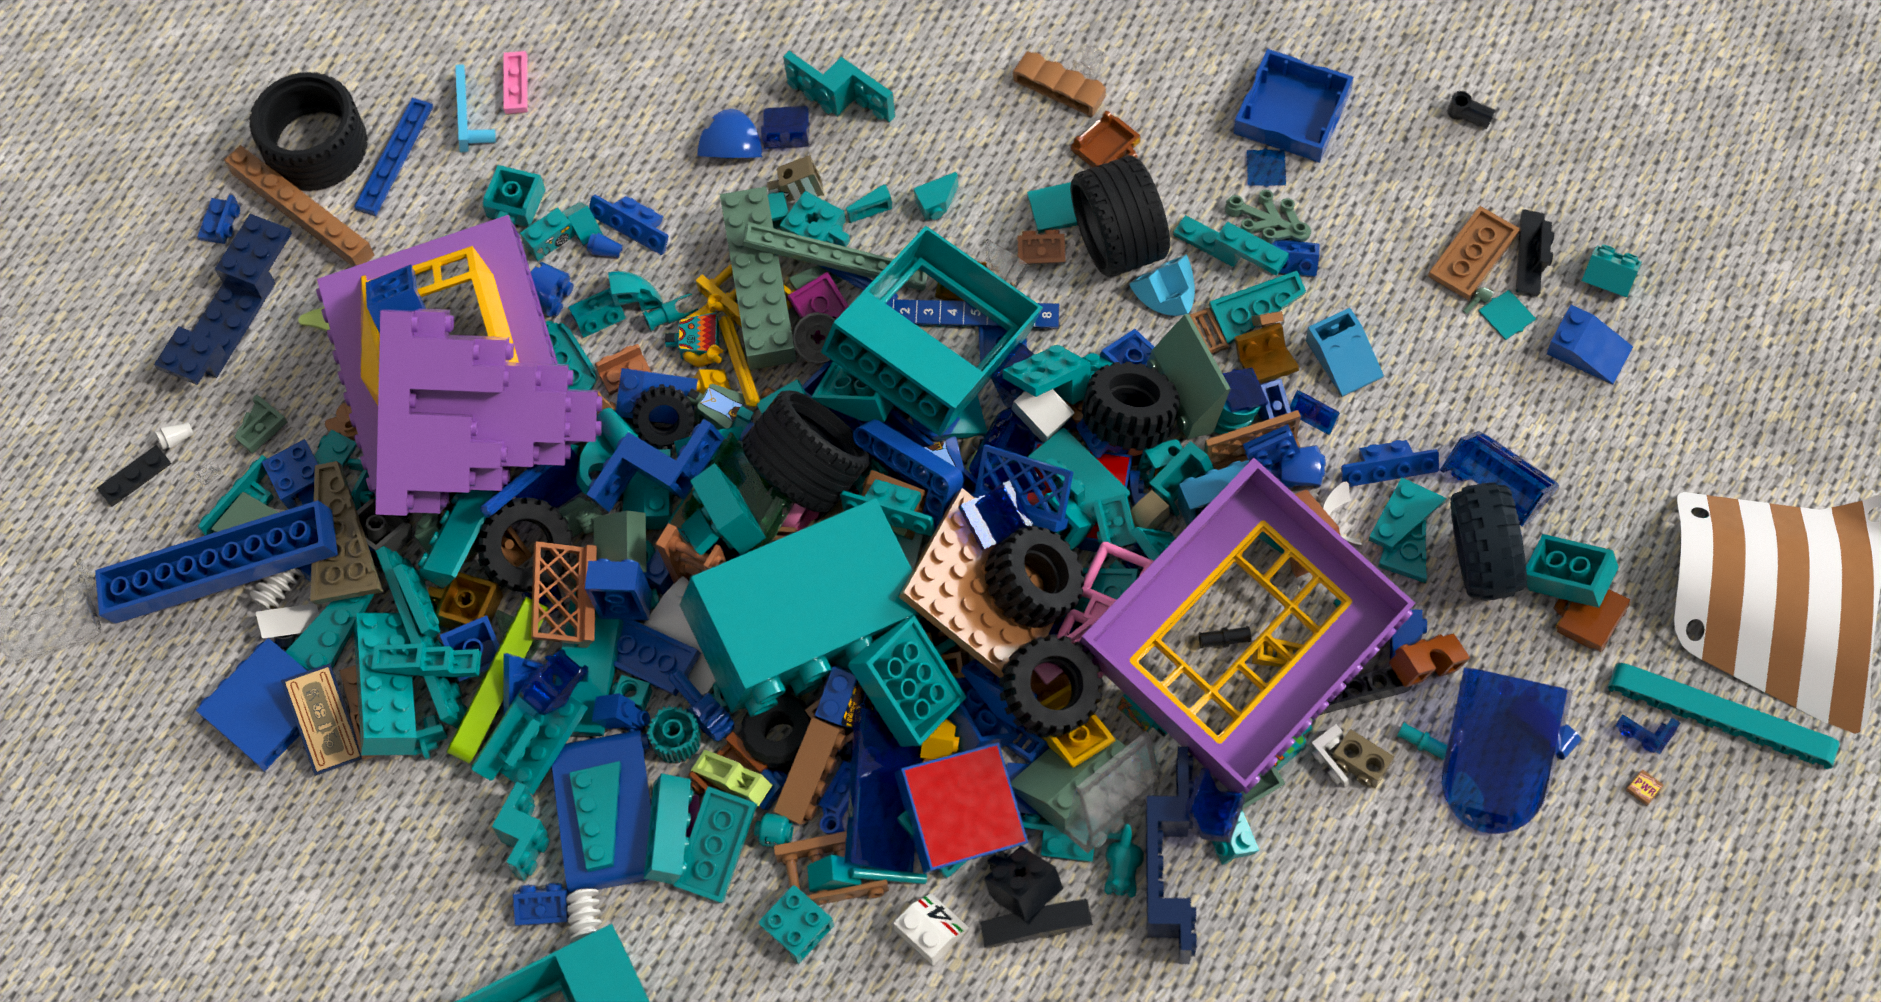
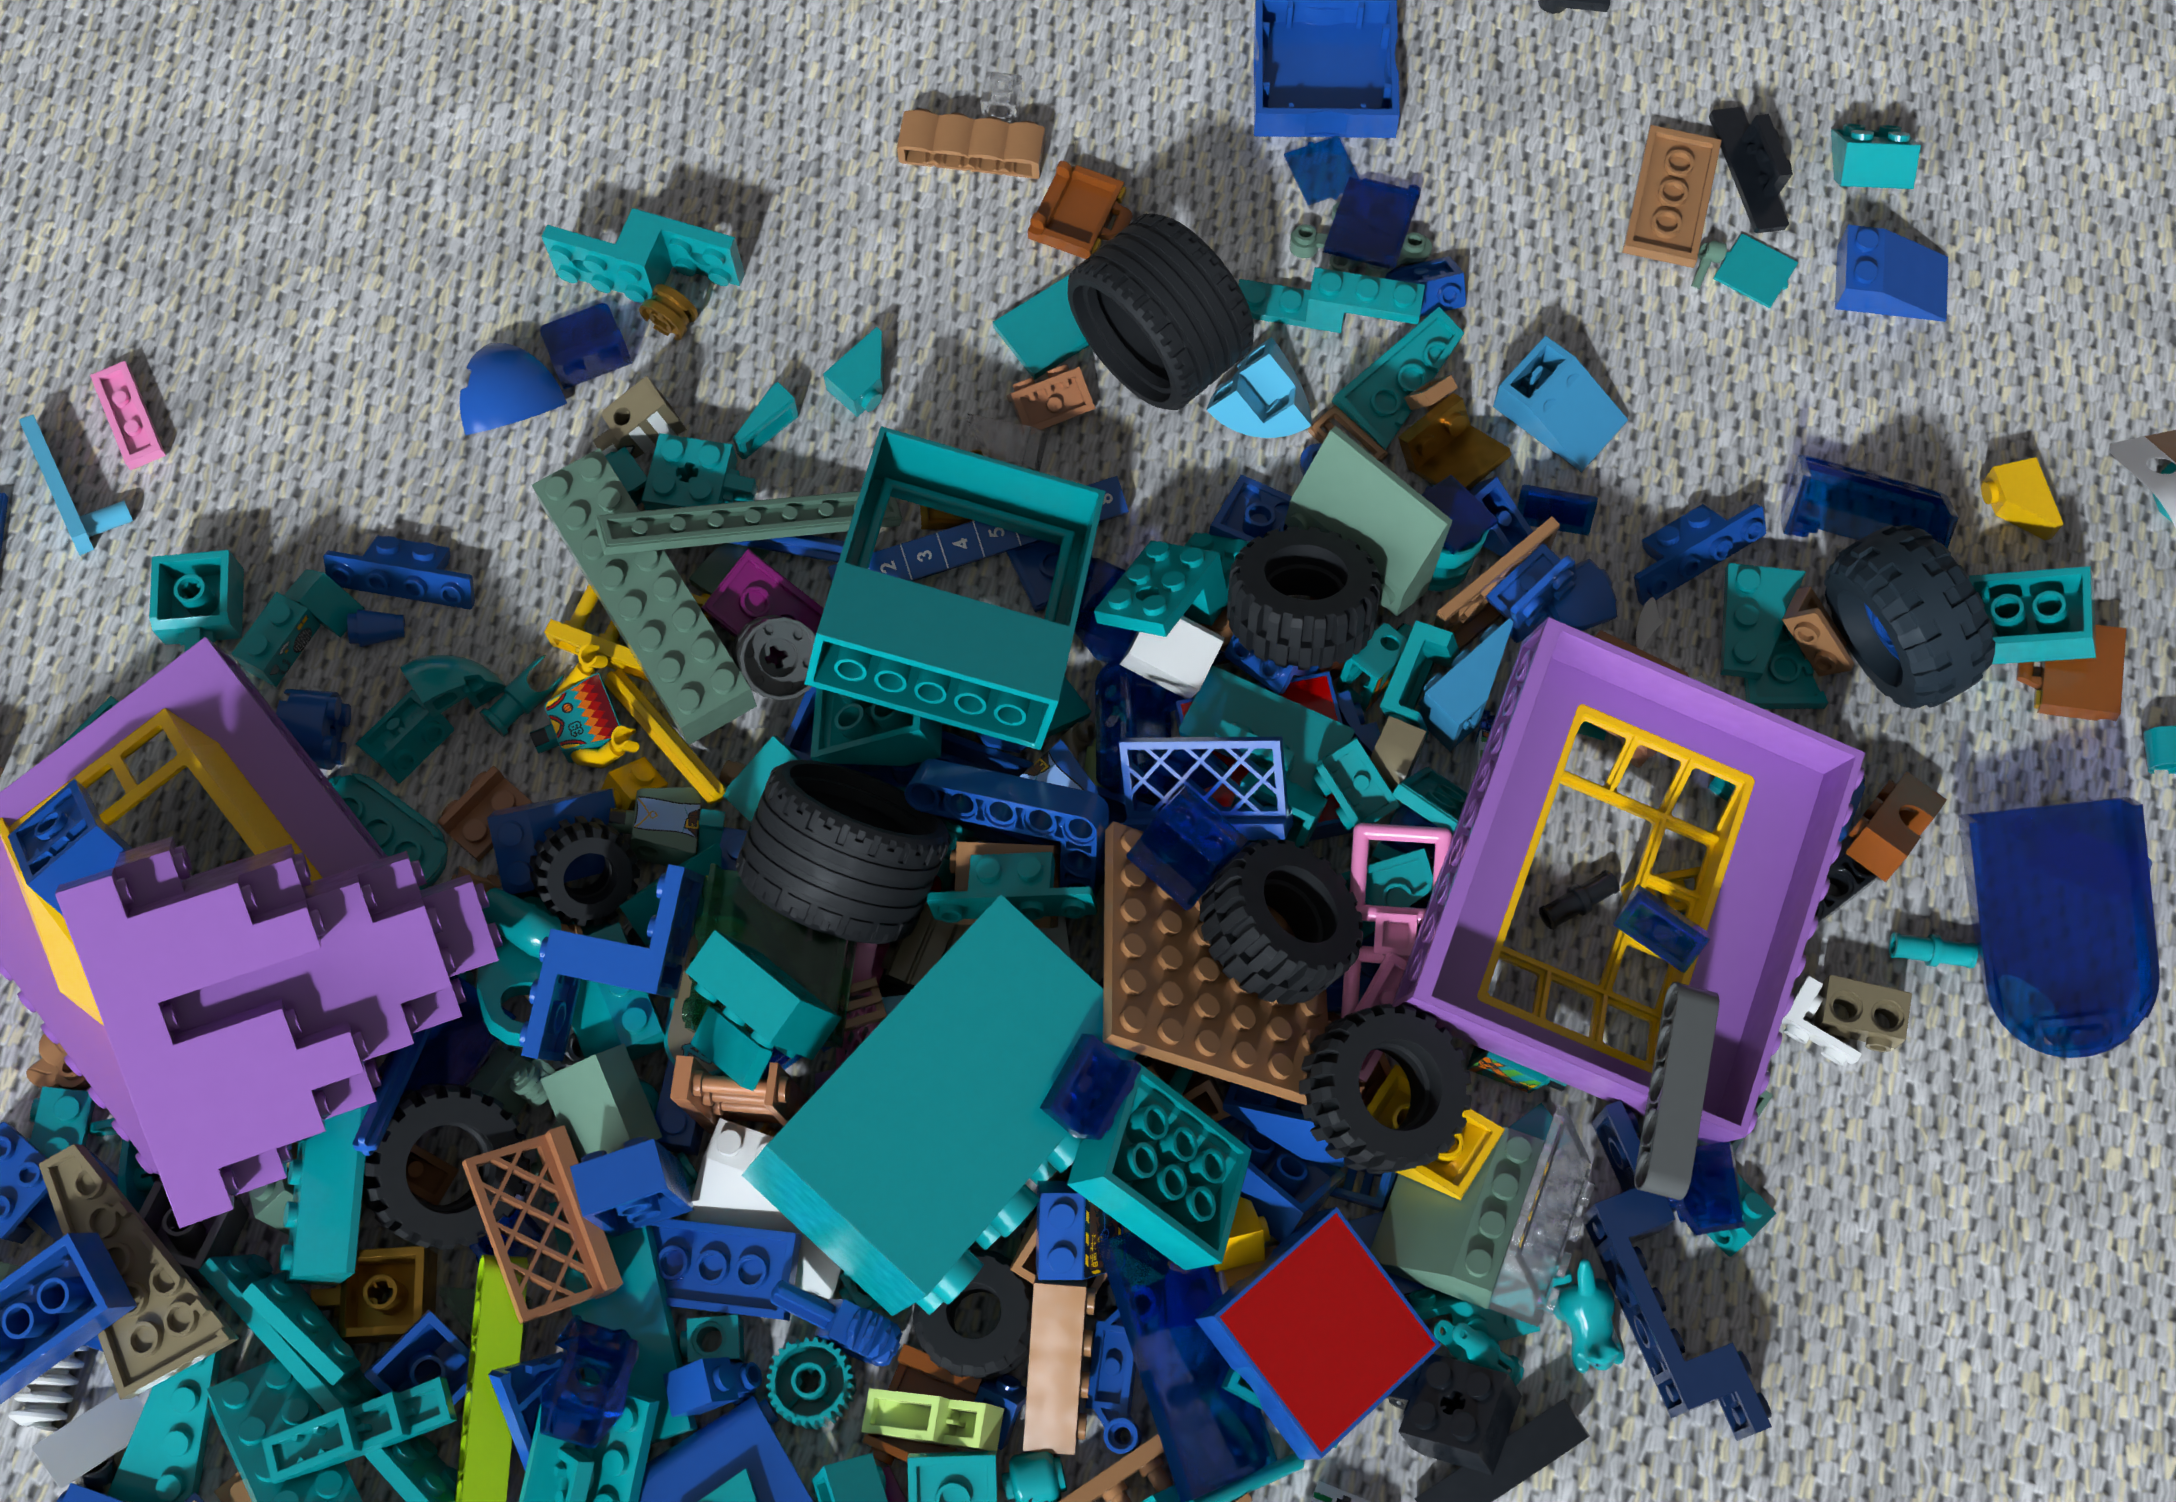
camera: 25 degrees left, 5 degrees up
(840, 123) = (668, 311): none -> pearl gold wheel
(879, 617) = (1090, 1089): none -> clear blue bracket
(1049, 852) = (1478, 1349): none -> teal piece
(1212, 743) = (1677, 1091): none -> dark grey beam
(1244, 653) = (1661, 929): none -> clear blue slope
(1279, 207) = (1372, 222): none -> clear blue piece
(1435, 535) = (1817, 634): none -> medium nougat bracket
(1605, 502) = (2022, 497): none -> yellow slope

